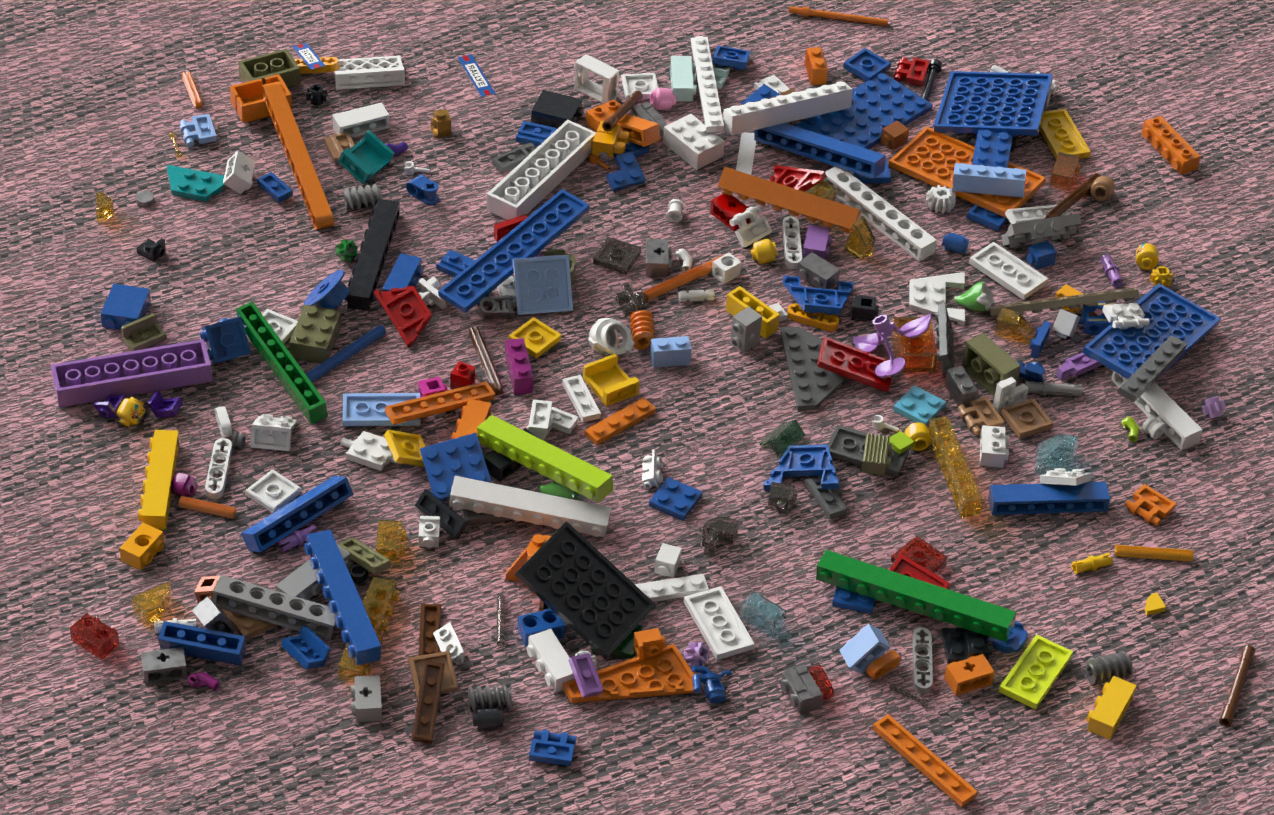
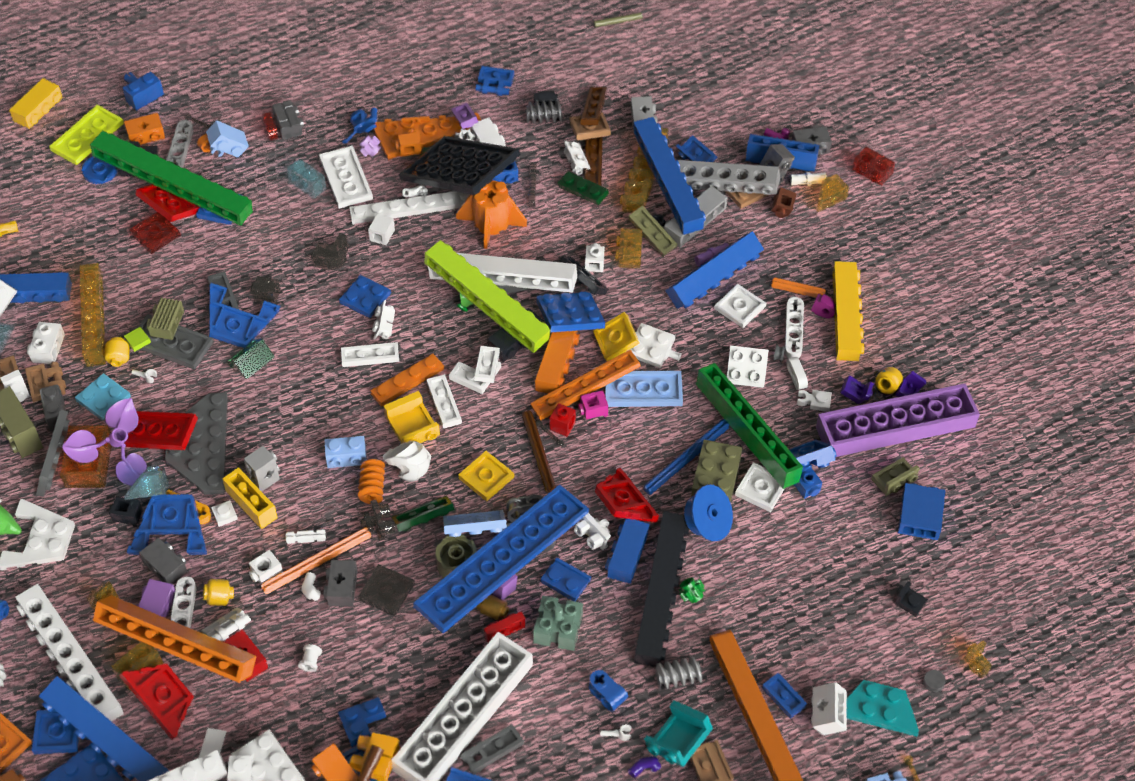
camera: 175 degrees left, 10 degrees up
(142, 546) = (850, 243): light orange brick -> none
(206, 403) = (818, 400): none -> white plate
(441, 606) = (583, 188): none -> dark green plate
(465, 228) = (558, 623): none -> sand green brick
(518, 366) = (505, 433): magenta brick -> none
(591, 307) = (423, 513): none -> dark green plate
(661, 439) = (369, 354): none -> white plate
(848, 317) = (149, 483): none -> clear light blue slope
(925, 760) = (202, 68): orange plate -> none
(987, 722) = (142, 90): none -> blue brick
(1108, 666) = (26, 133): flat silver piece -> none

